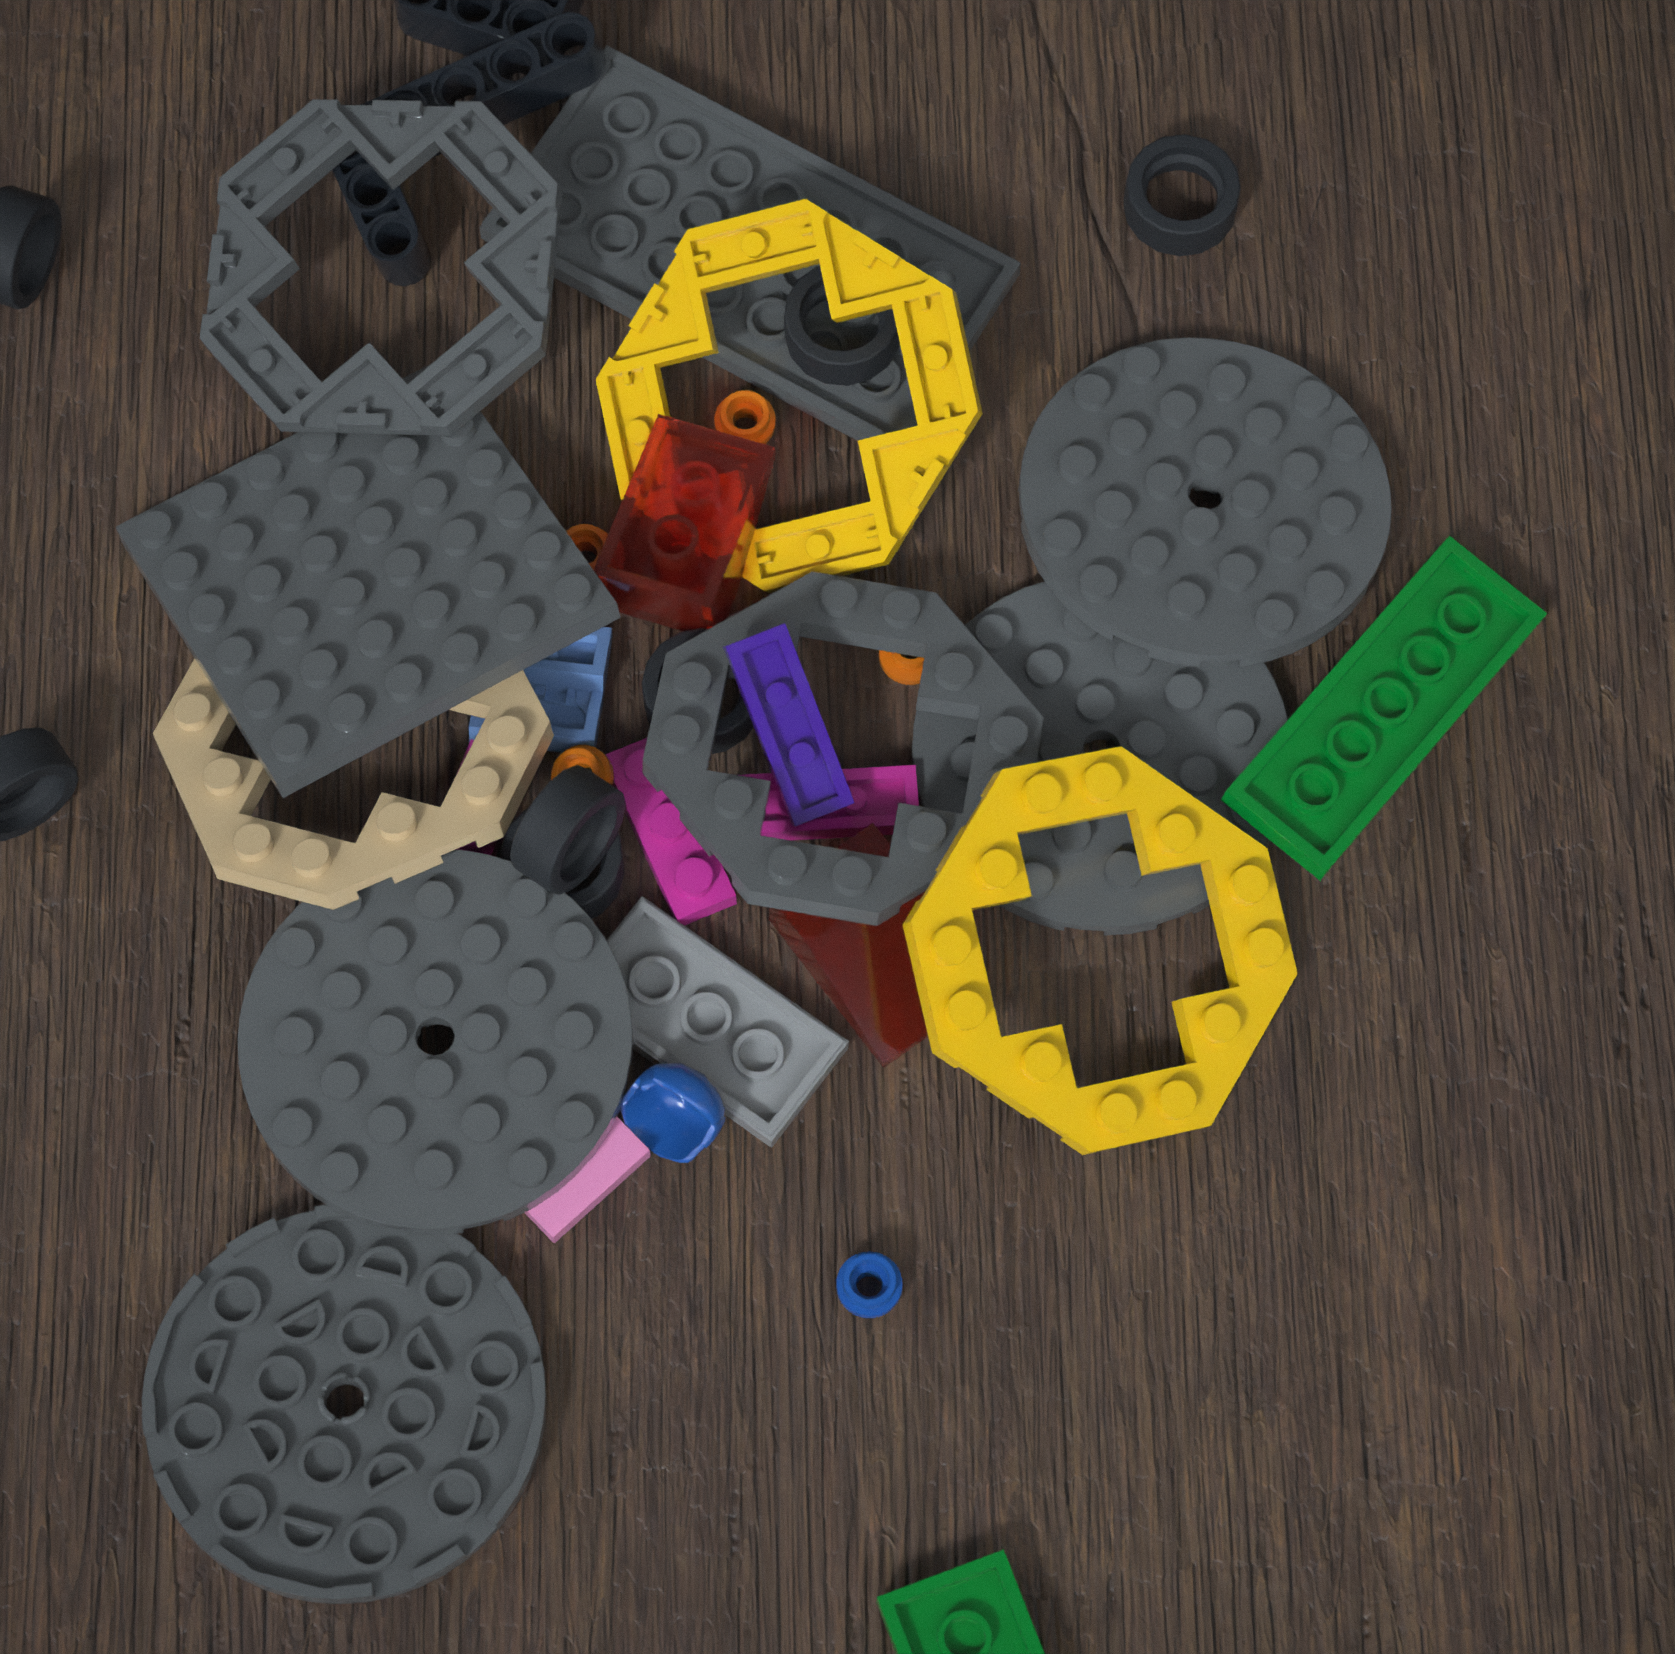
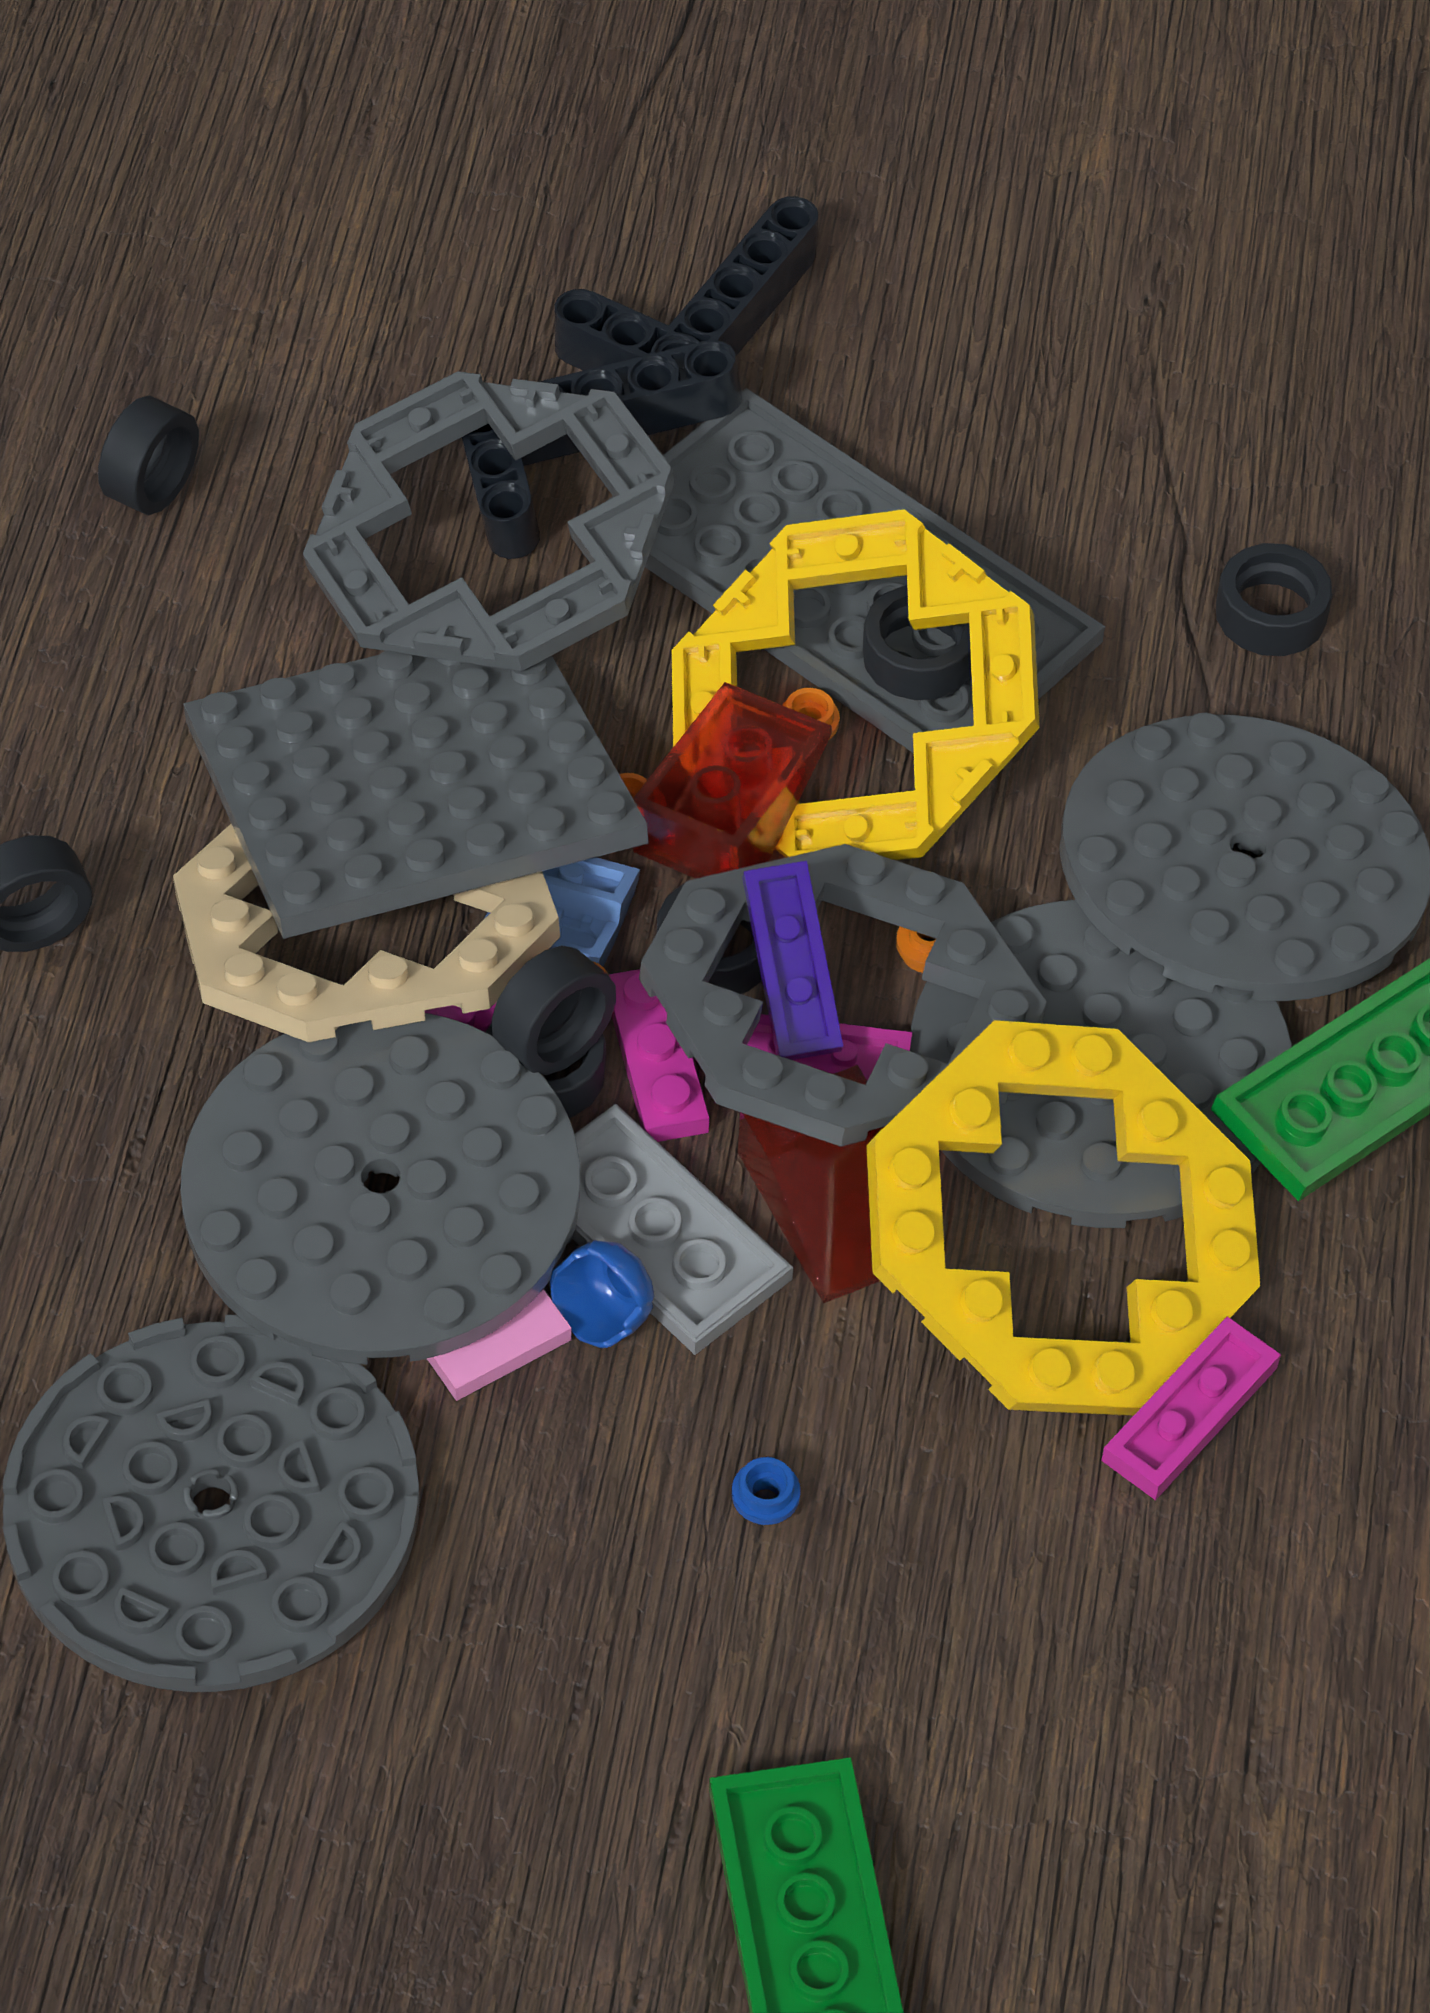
camera: 10 degrees right, 15 degrees down
(1254, 1117) = (1190, 1408): none -> dark pink plate

